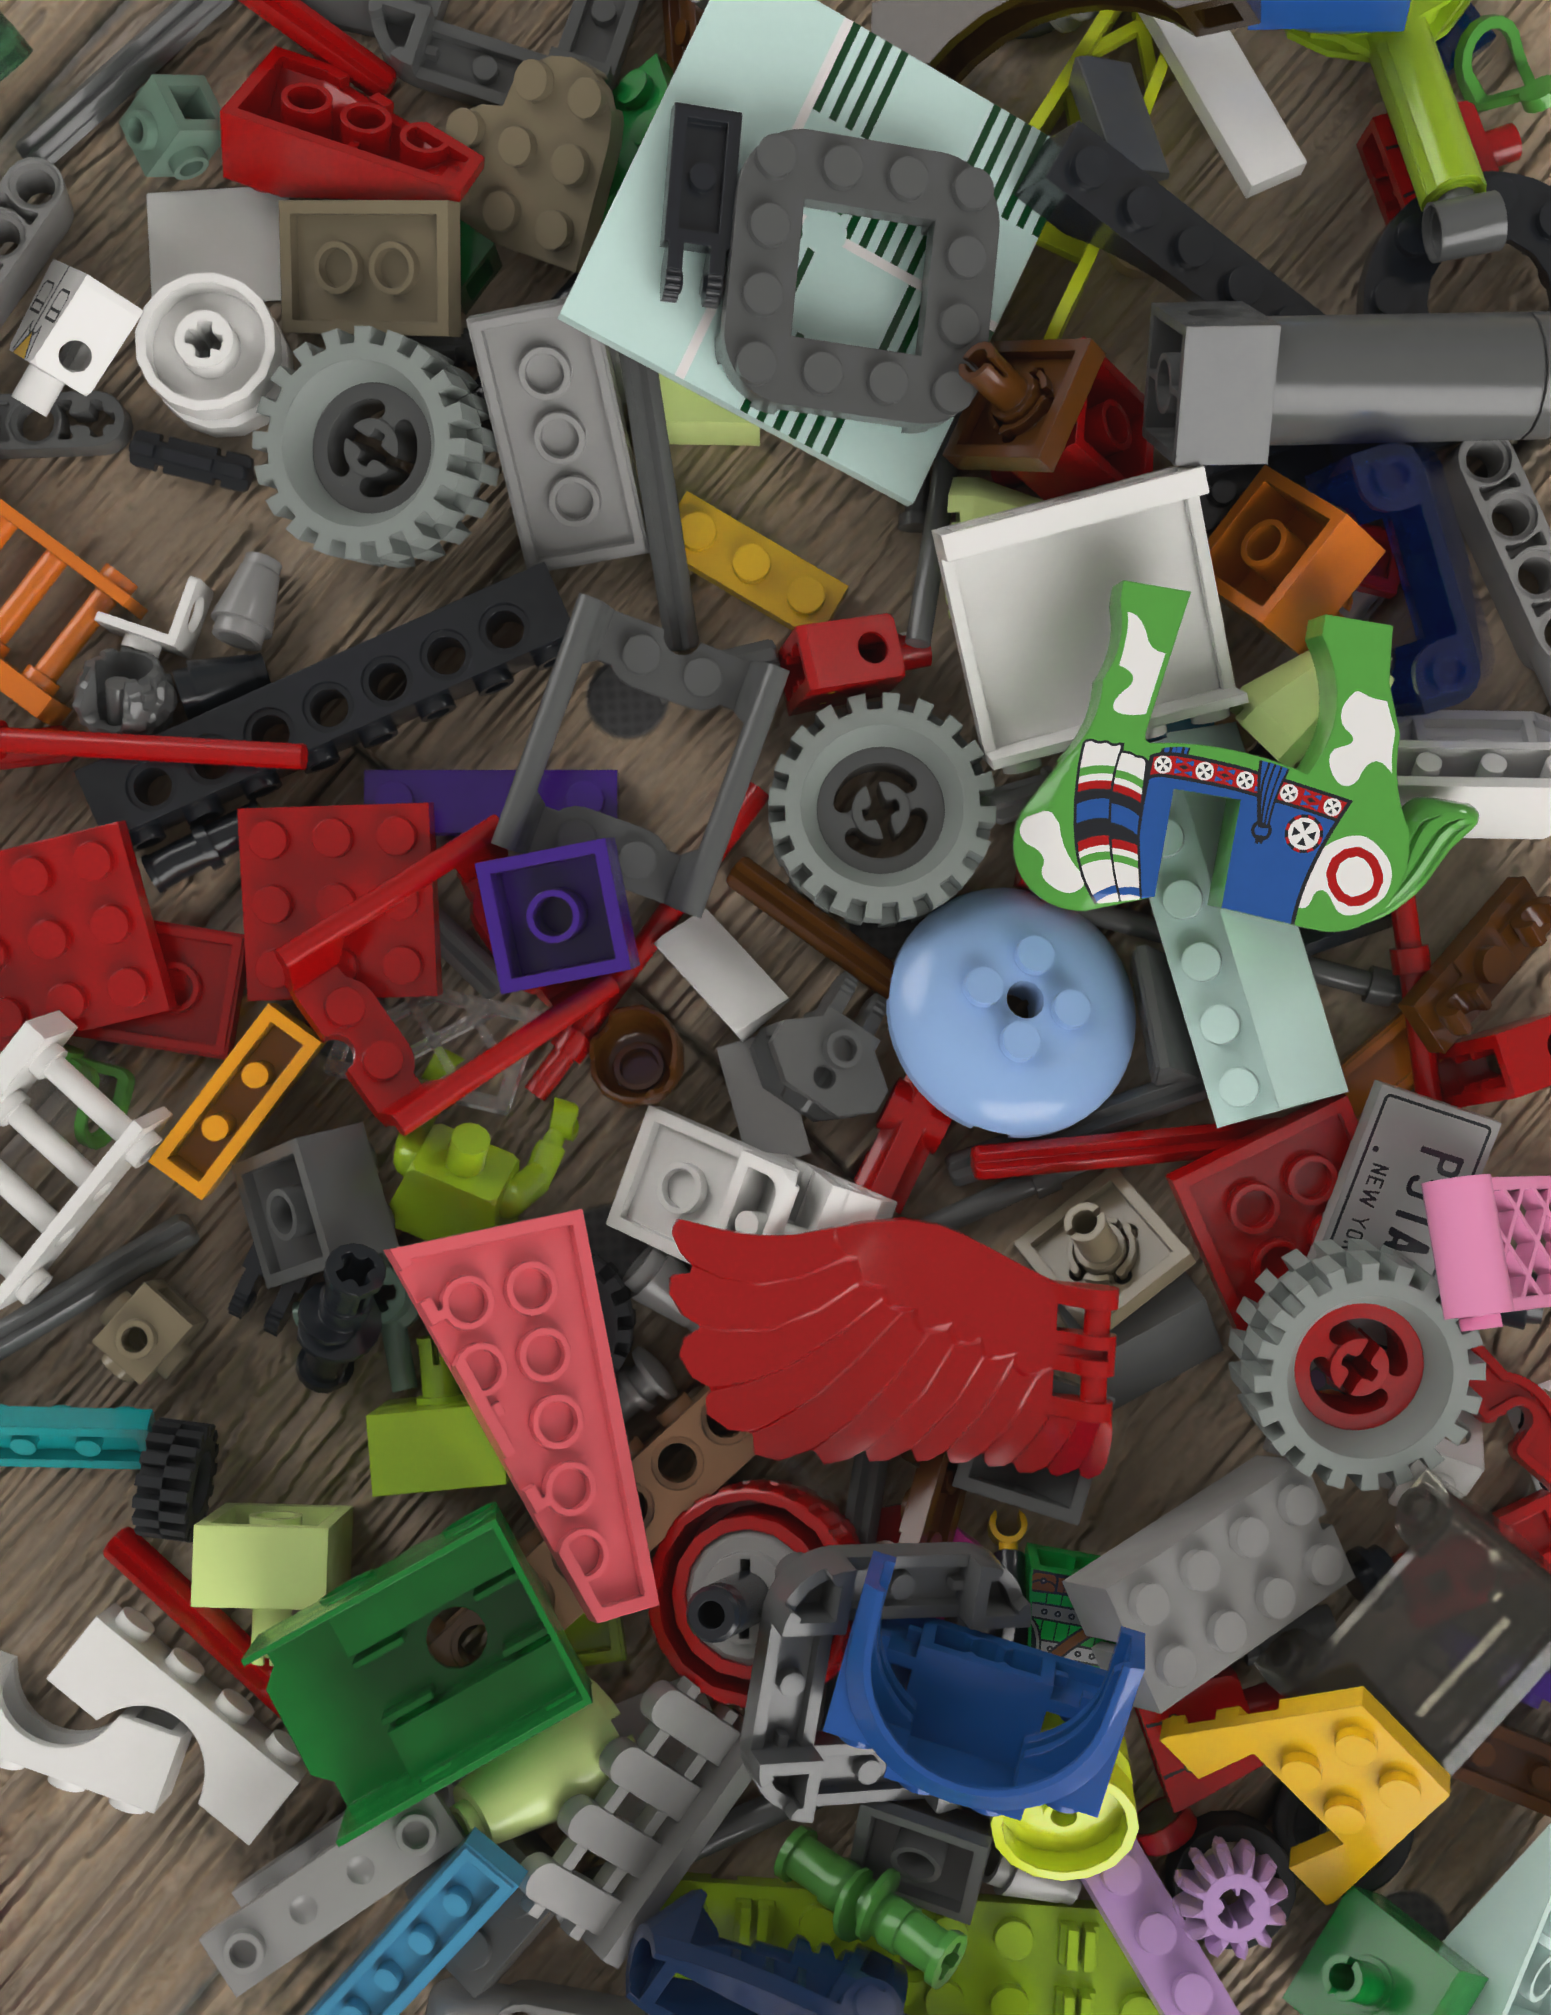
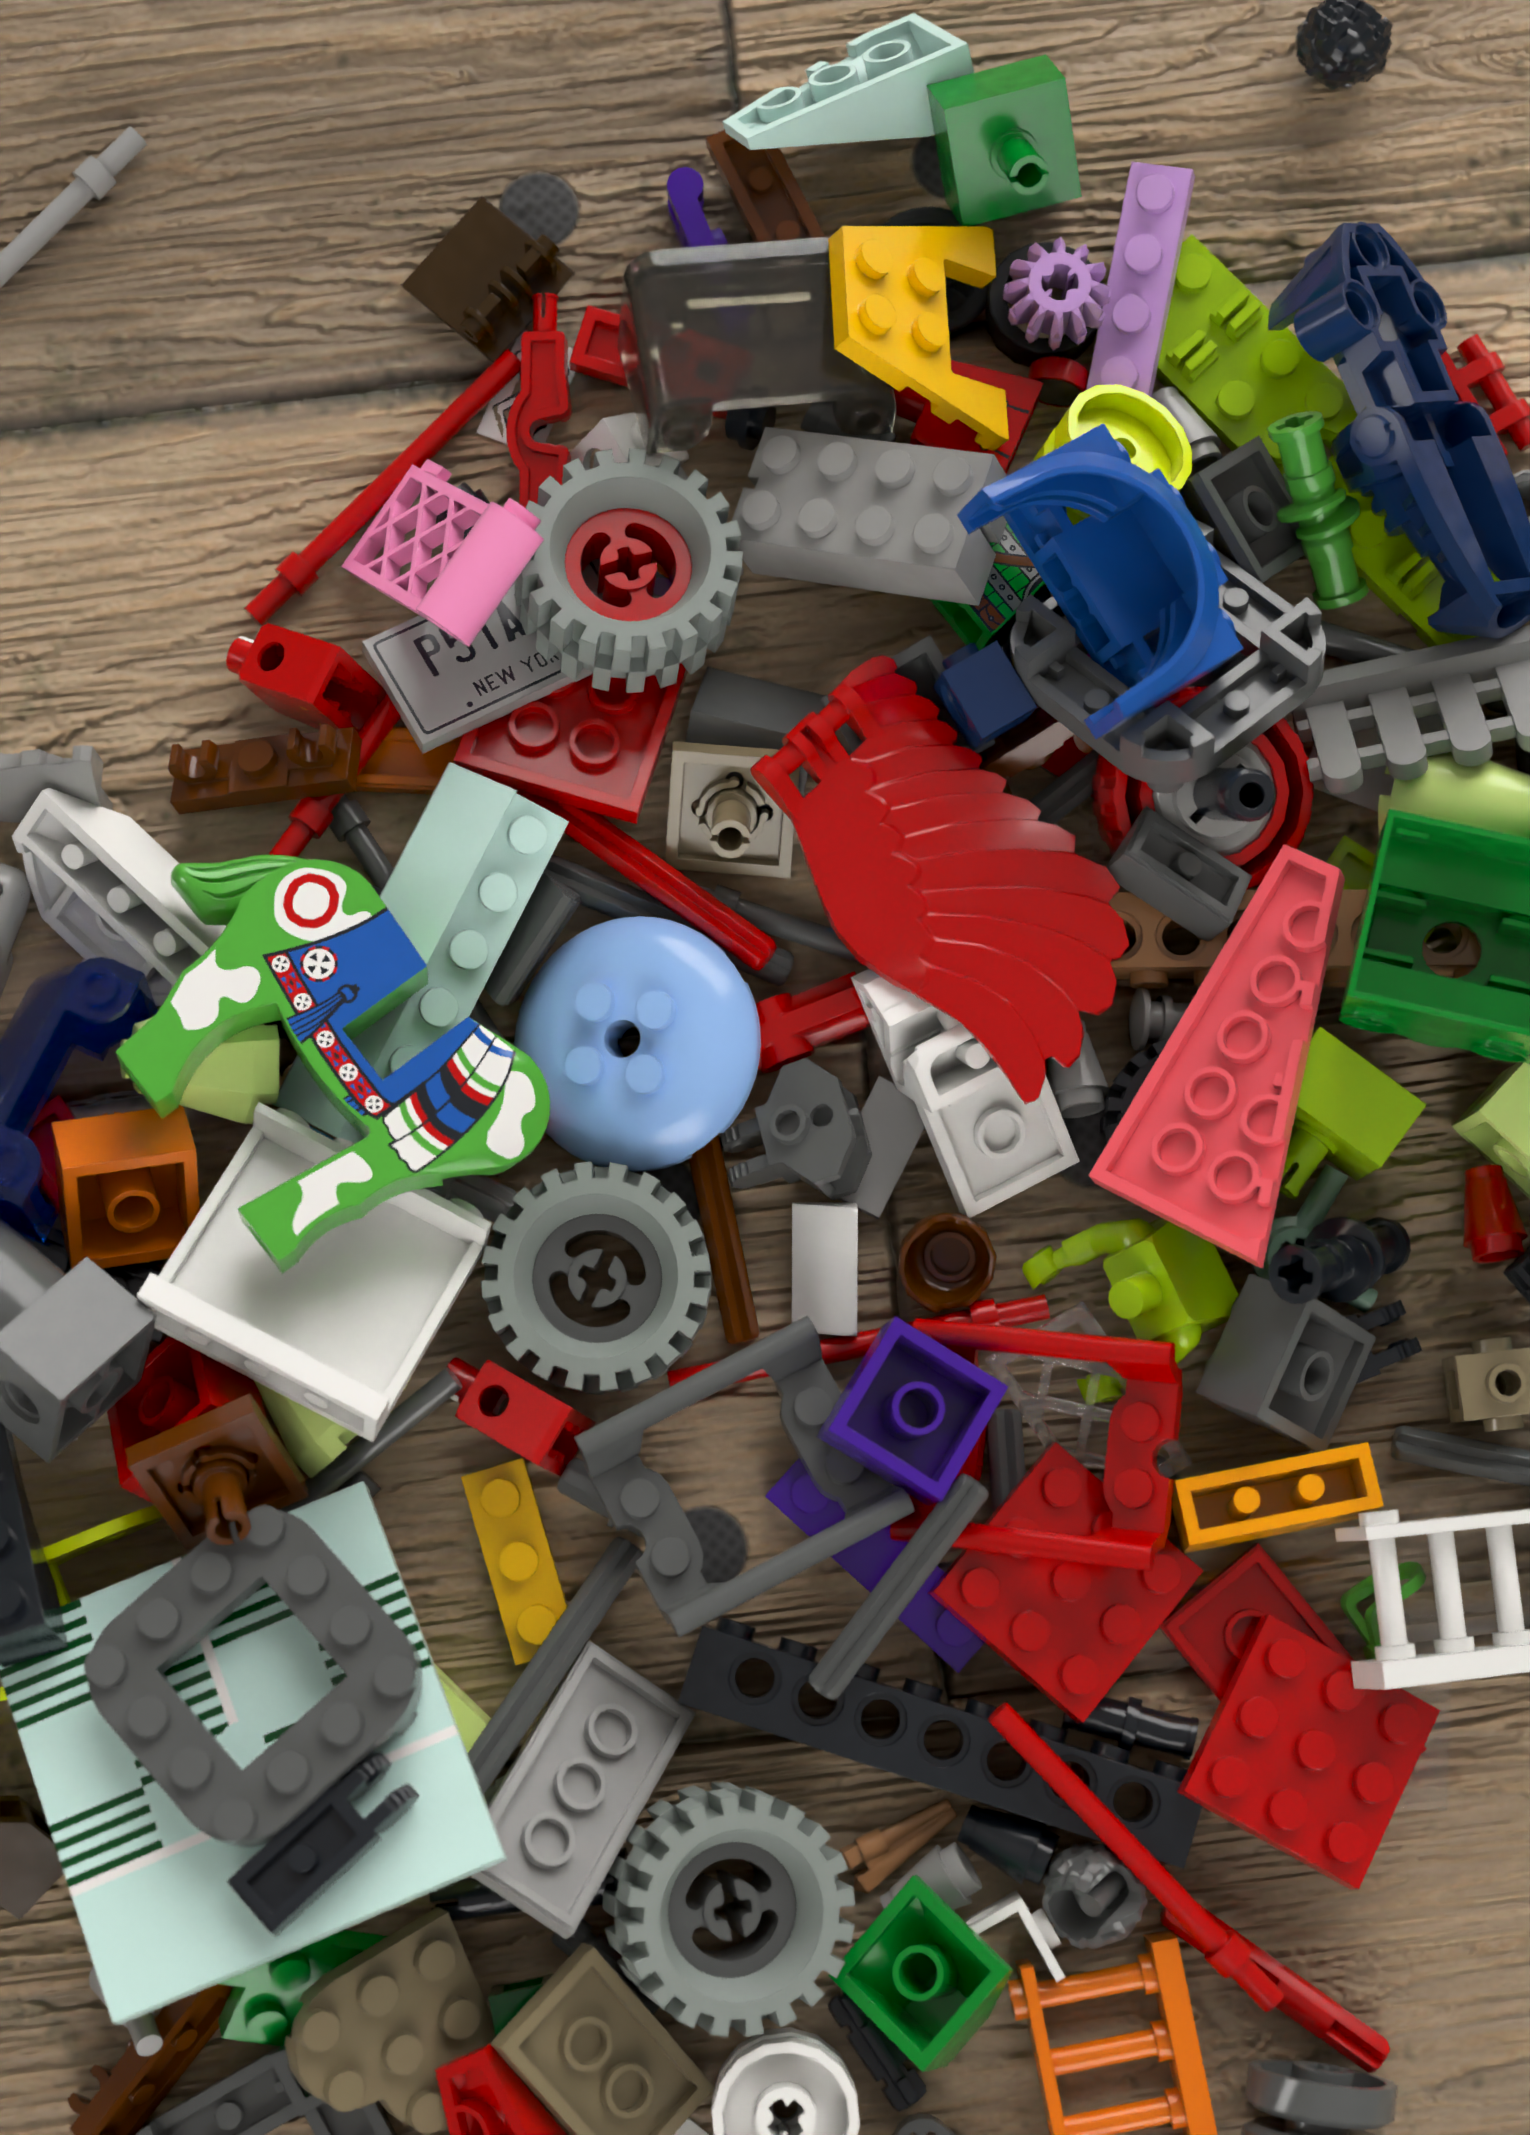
camera: 140 degrees left, 5 degrees down
(197, 527) = (923, 1976): none -> green slope
(262, 1462) = (1491, 1216): none -> red cone
(304, 610) = (891, 1846): none -> medium nougat piece
(454, 780) = (898, 1586): none -> dark grey axle
(718, 1507) = (1179, 875): none -> dark grey slope
(996, 1514) = (983, 693): none -> dark blue brick

